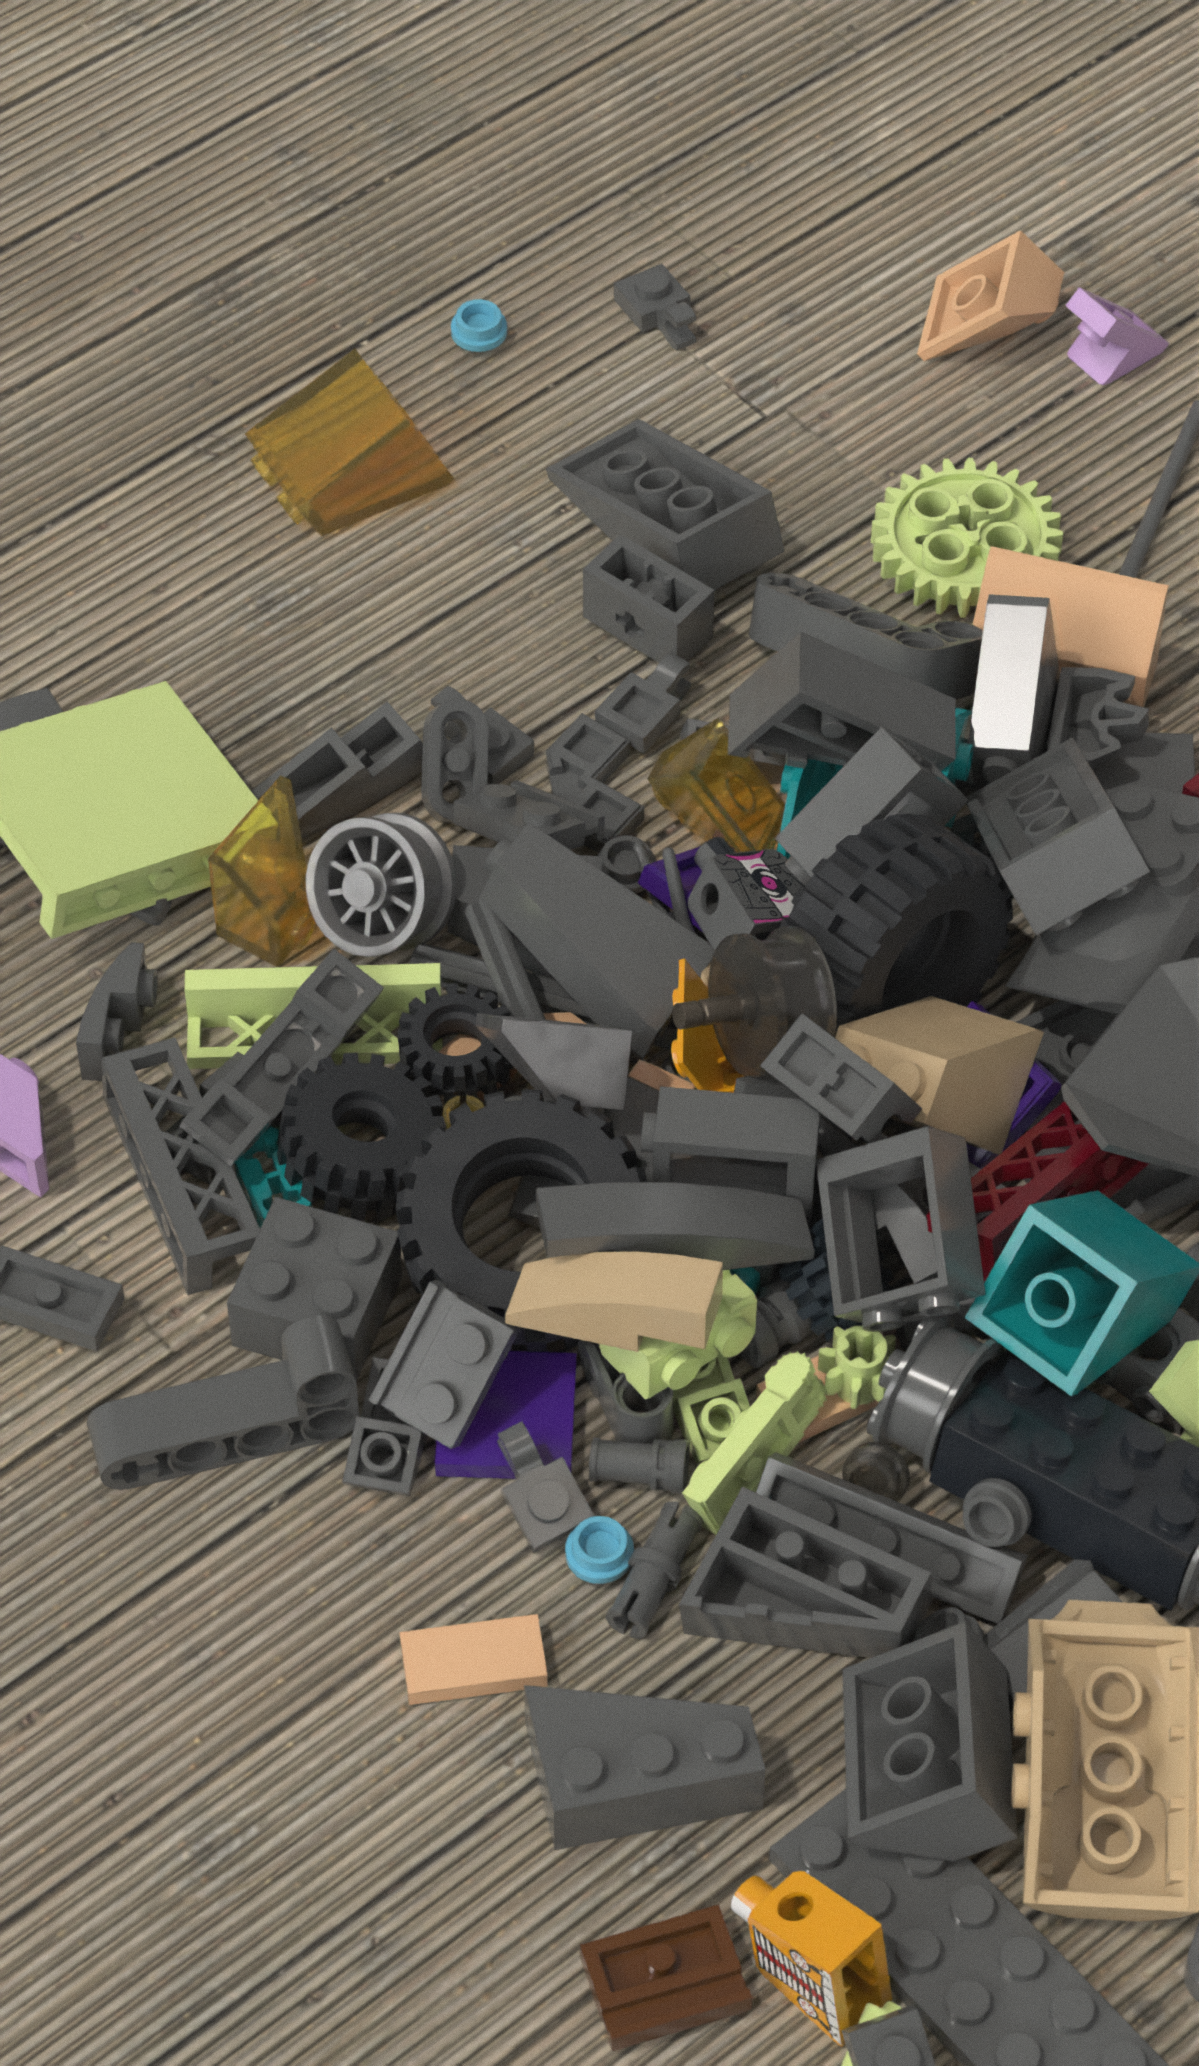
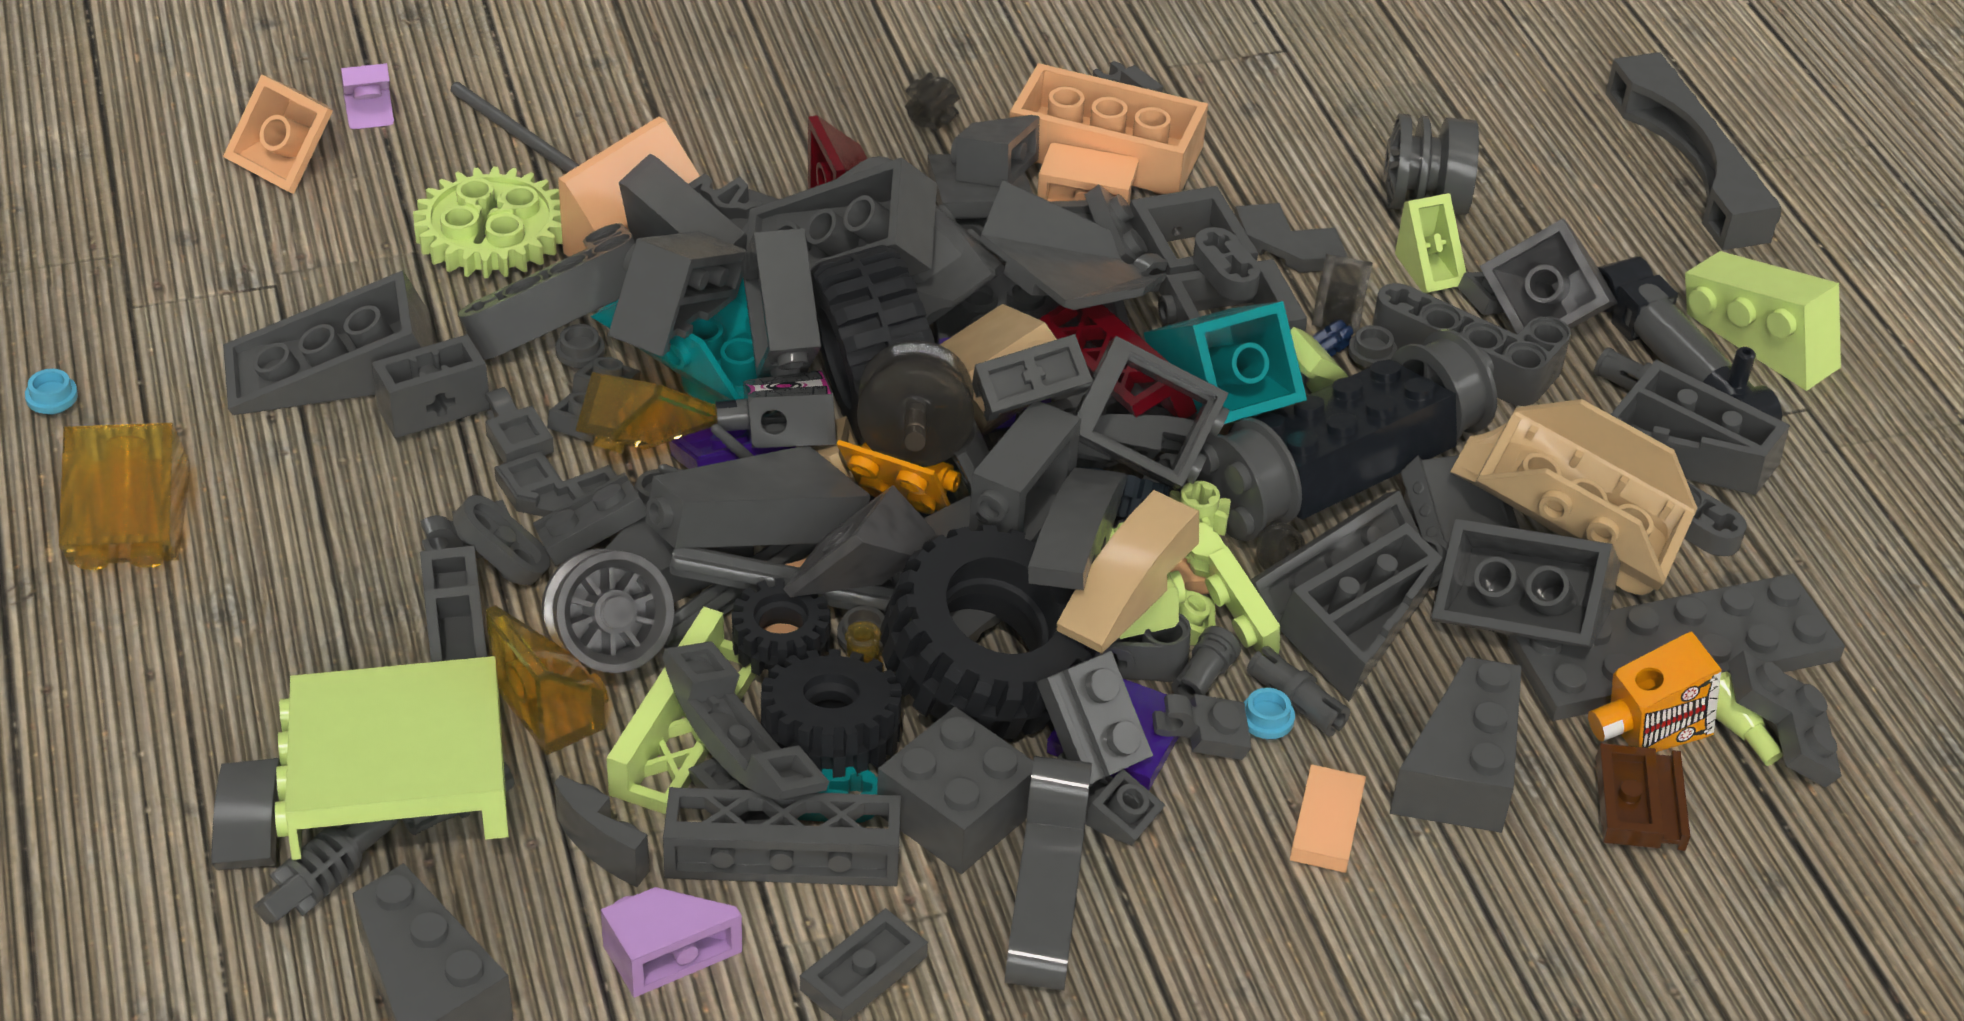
camera: 70 degrees left, 10 degrees down
(659, 301) = (118, 293): dark grey plate -> none
(996, 1513) = (1362, 483): dark grey plate -> none

